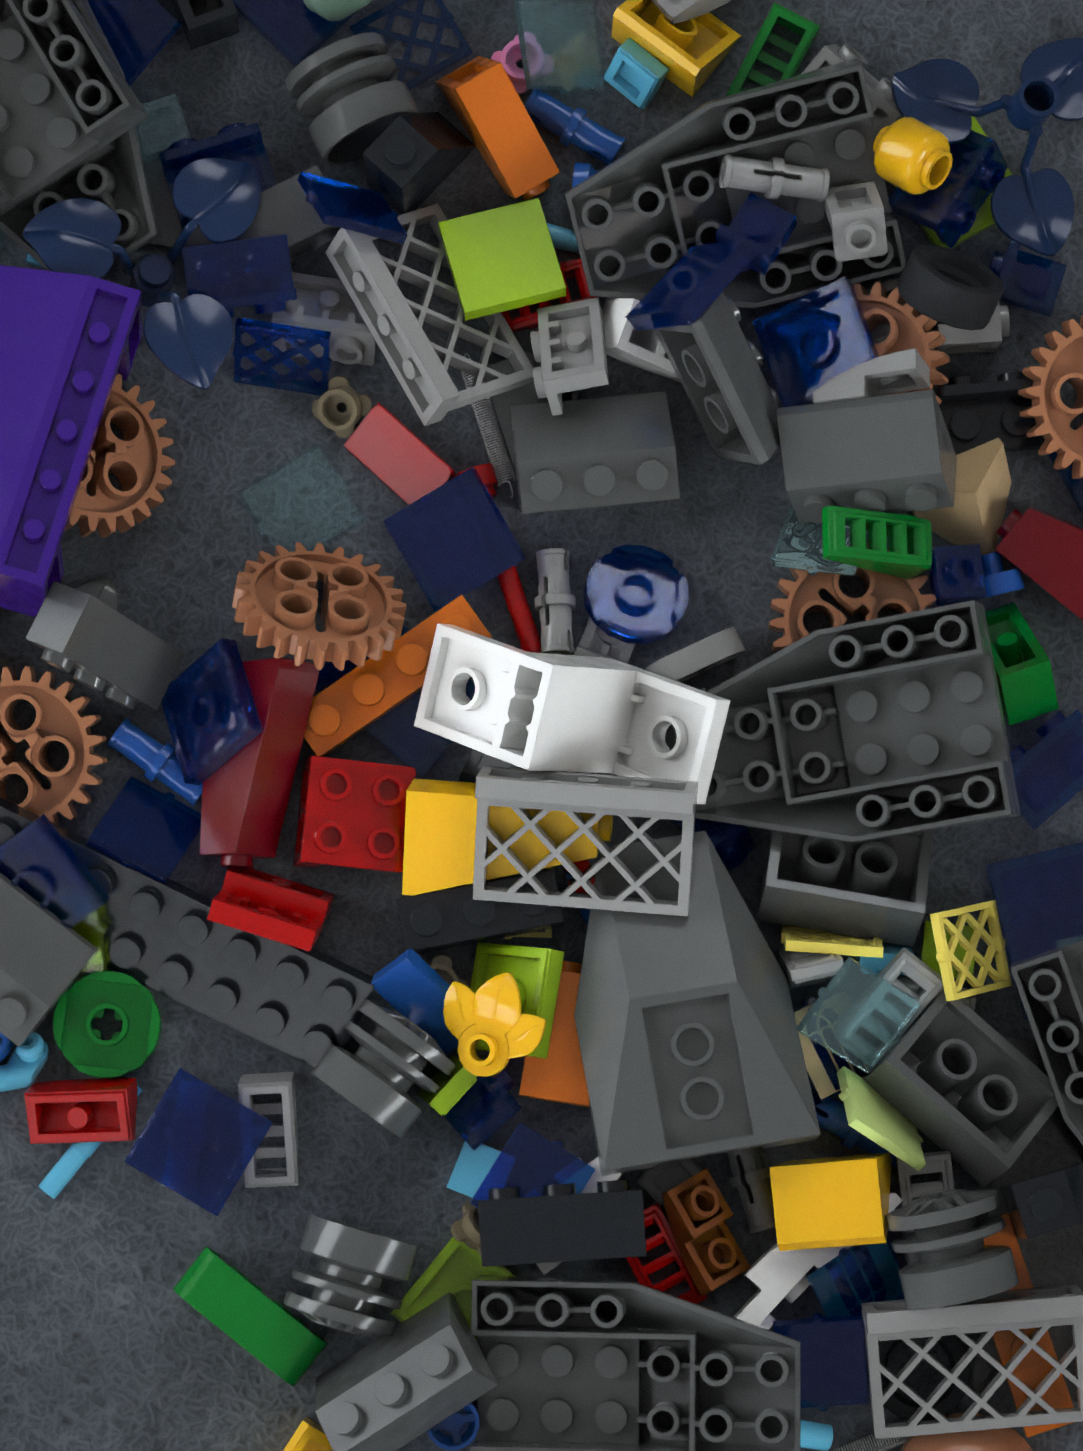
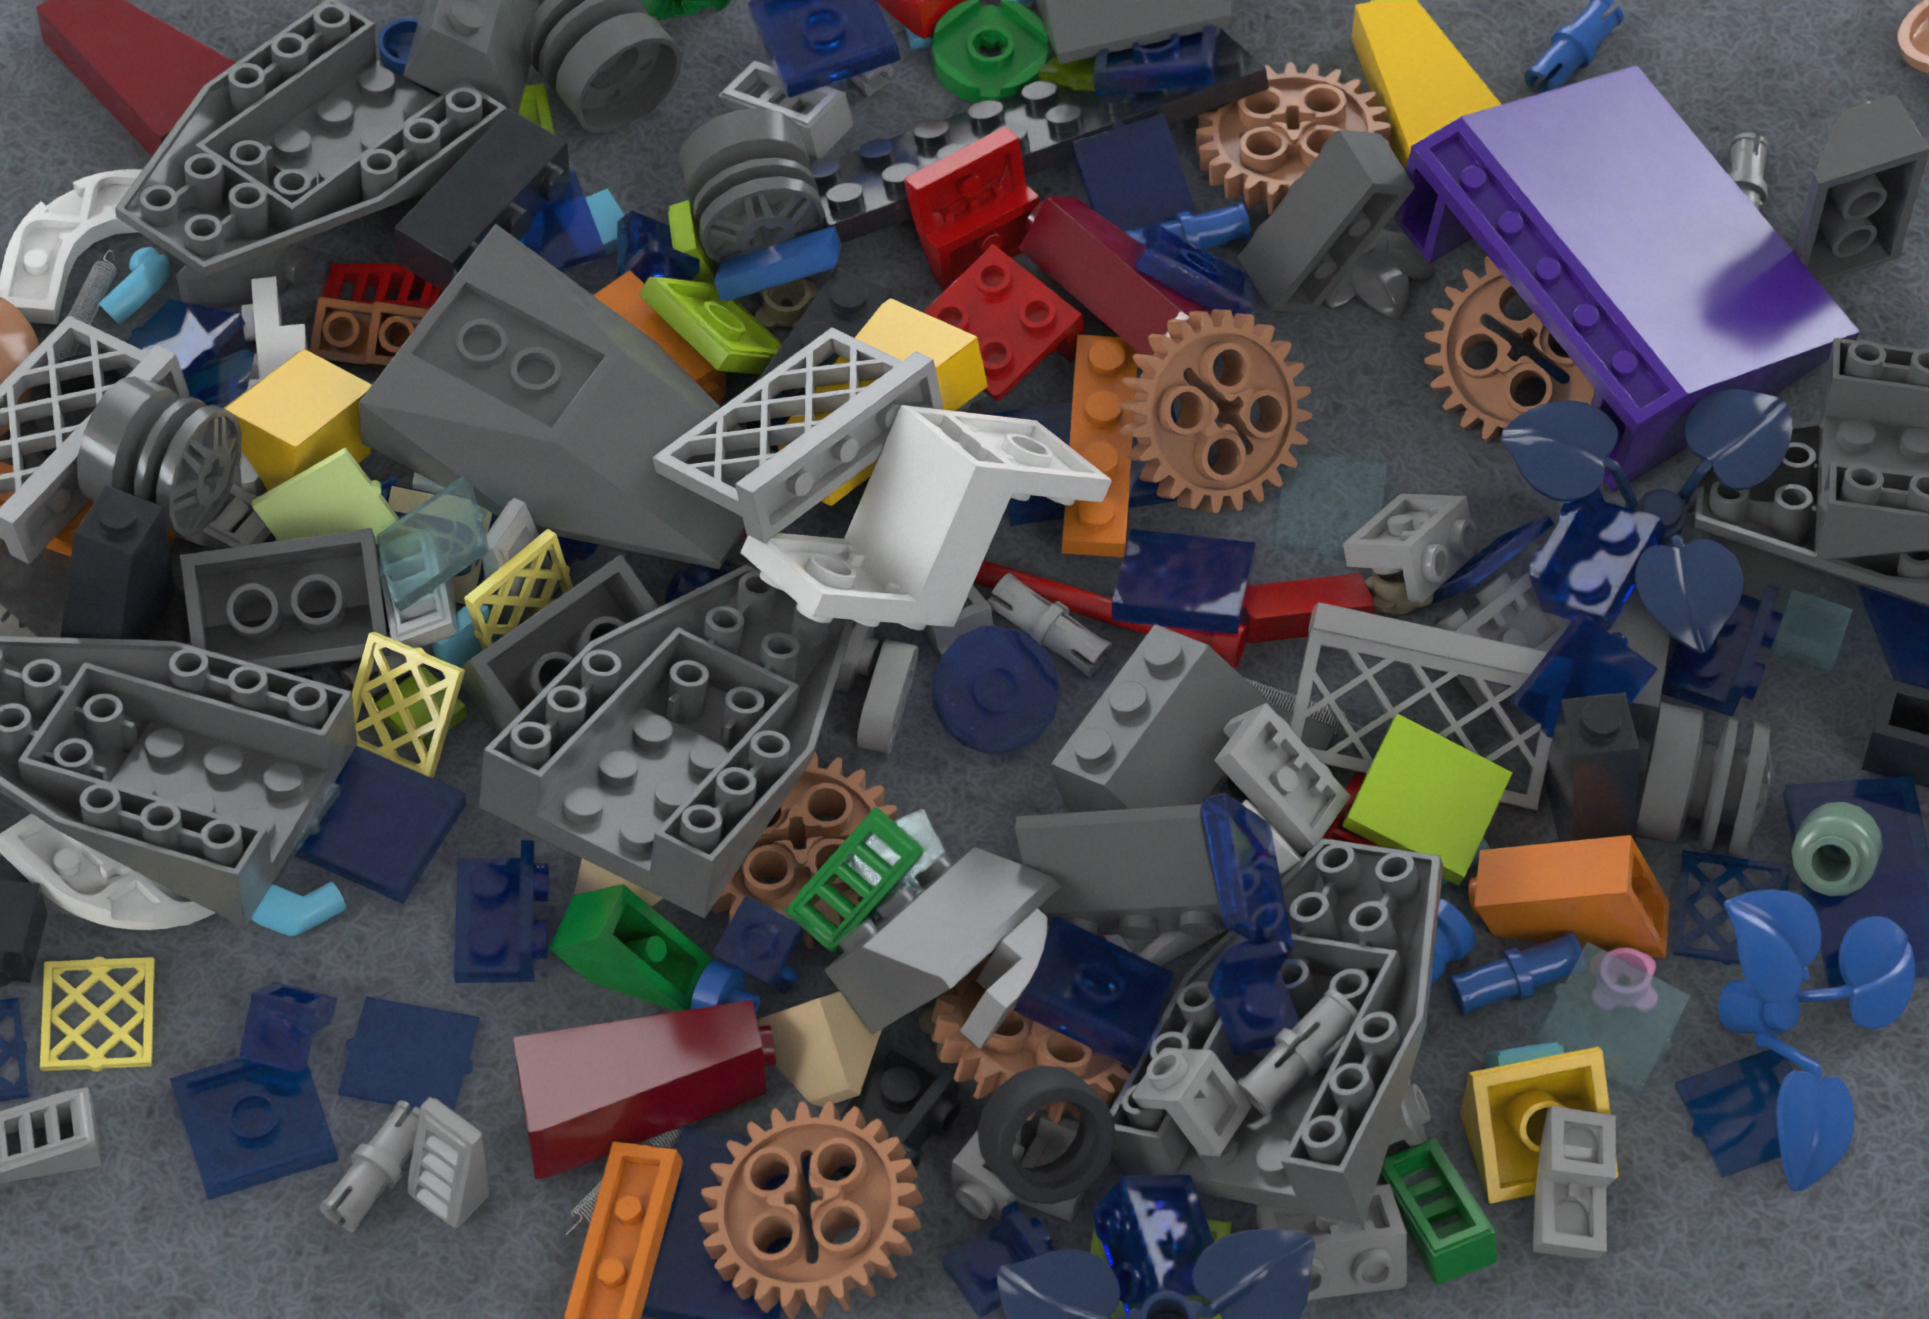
camera: 130 degrees right, 25 degrees down
(303, 416) = (1416, 535): none -> light grey bracket
(491, 1016) = (702, 263): yellow plate -> none
(912, 156) = (1213, 1202): yellow head -> none

